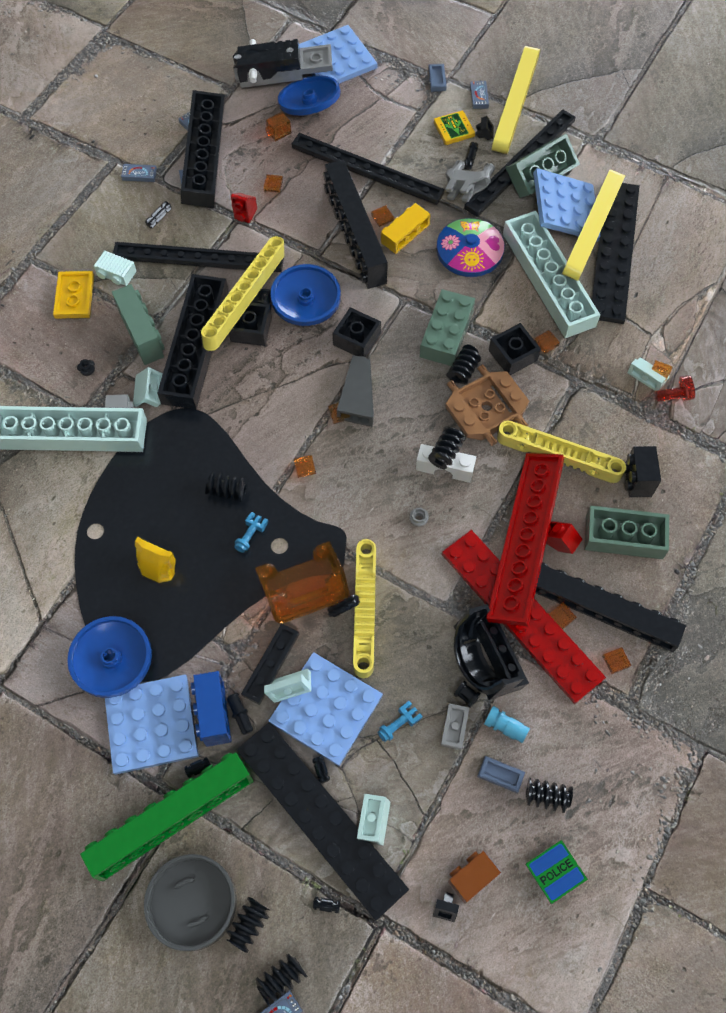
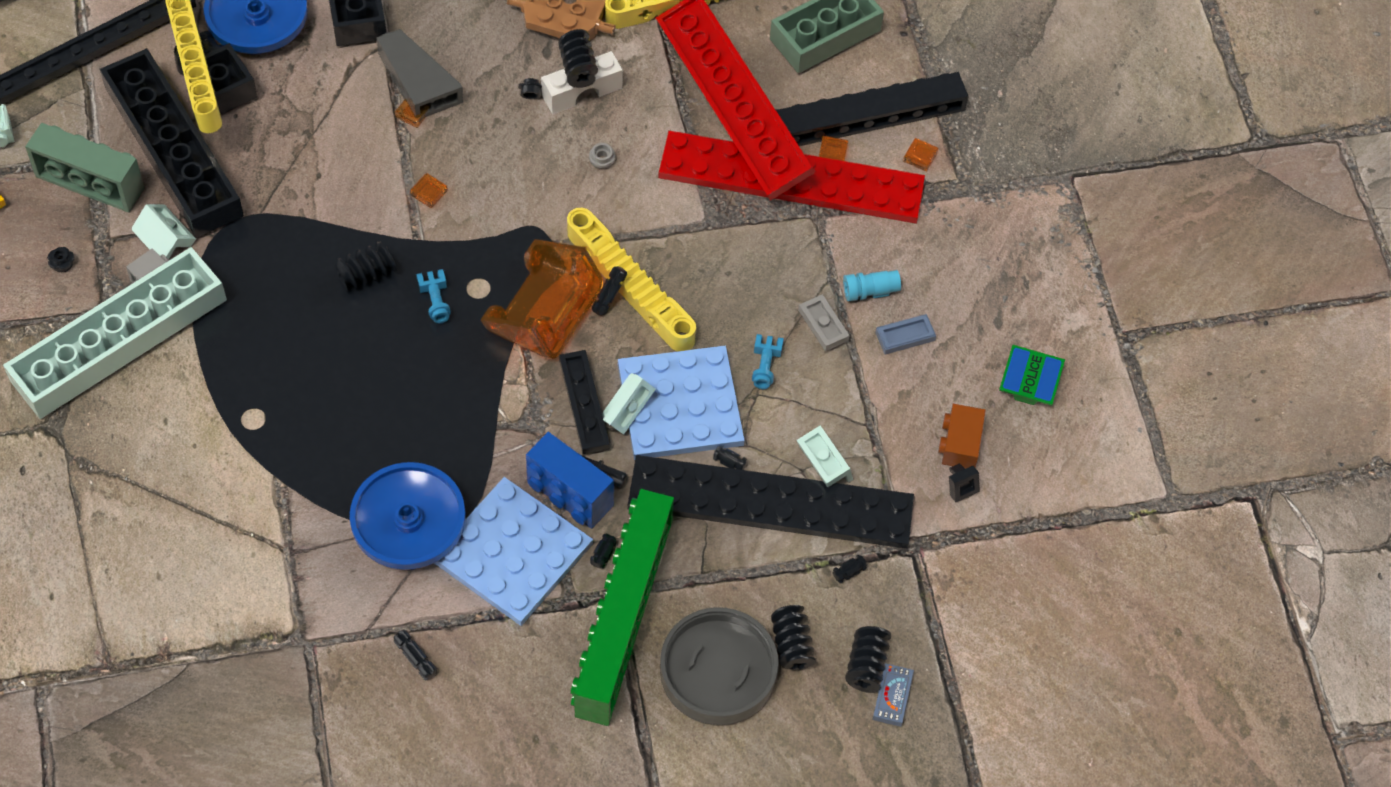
camera: 45 degrees left, 5 degrees down
(42, 744) = (415, 655): none -> black axle
(154, 561) = (361, 391): yellow slope -> none
(413, 445) = (530, 88): none -> black plate
(467, 694) = (808, 285): black bush -> none
(472, 663) = (830, 235): black piece -> none
(551, 795) = (966, 313): black piece -> none
(563, 537) = (771, 71): red slope -> none

